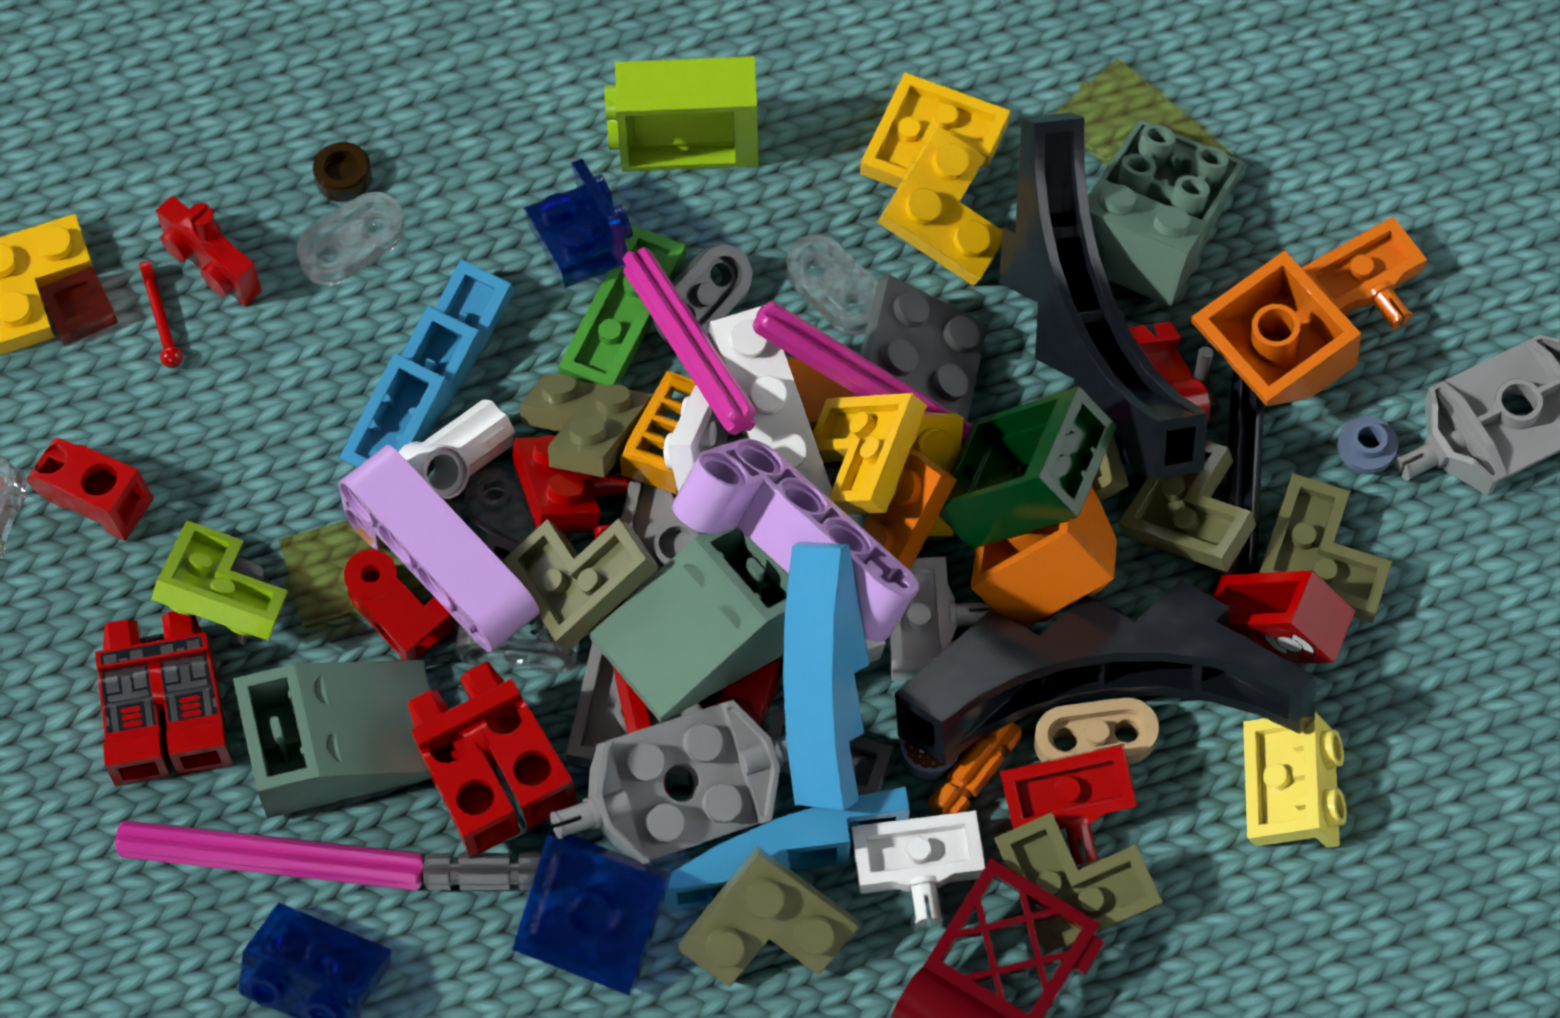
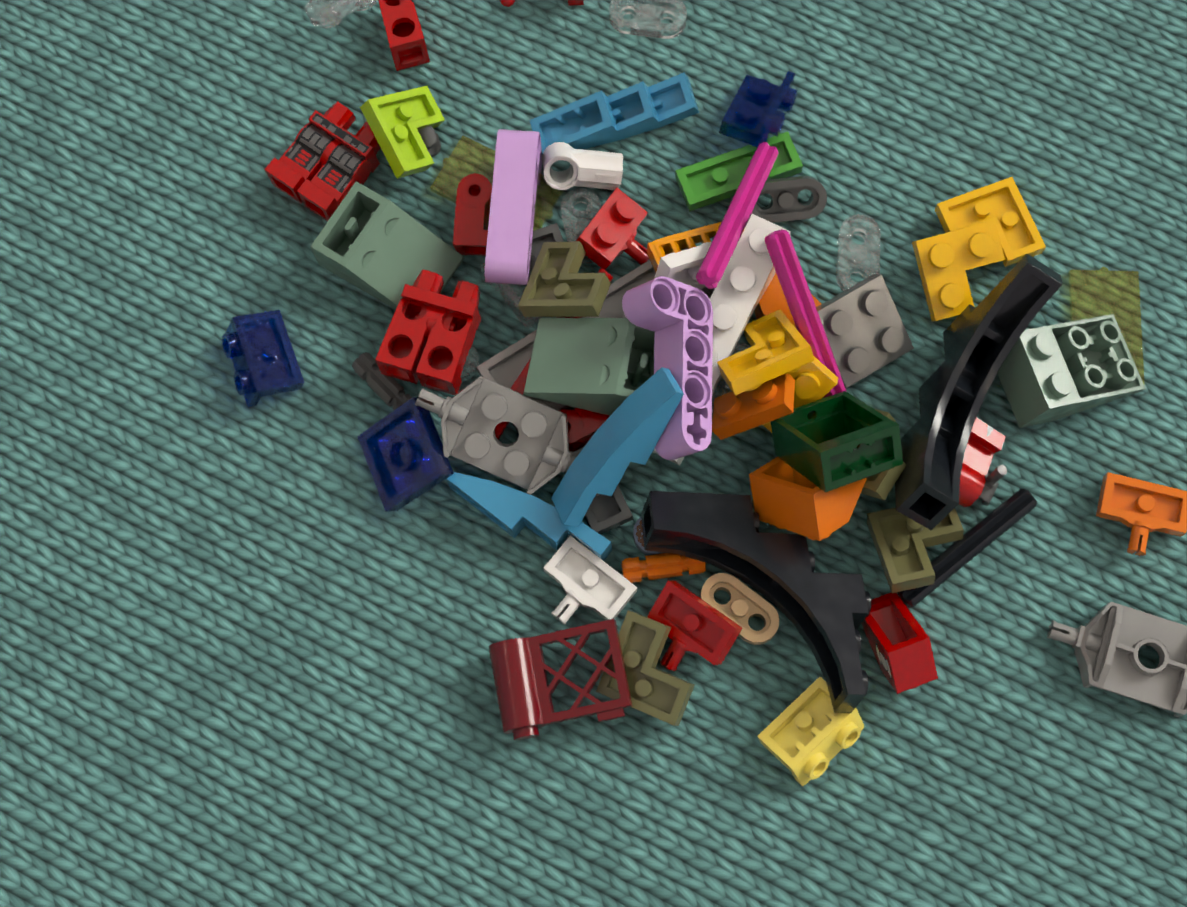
camera: 50 degrees right, 10 degrees up
(269, 855) = (301, 283): dark pink axle -> none
(590, 420) = (660, 212): olive plate -> none
(683, 114) = (871, 96): lime window -> none
(764, 904) = (486, 533): olive plate -> none
(929, 620) = (719, 466): white plate -> none
(1281, 333) = (1055, 497): orange slope -> none
(1306, 539) = (947, 624): olive plate -> none
(1365, 459) = (1035, 606): sand blue plate -> none

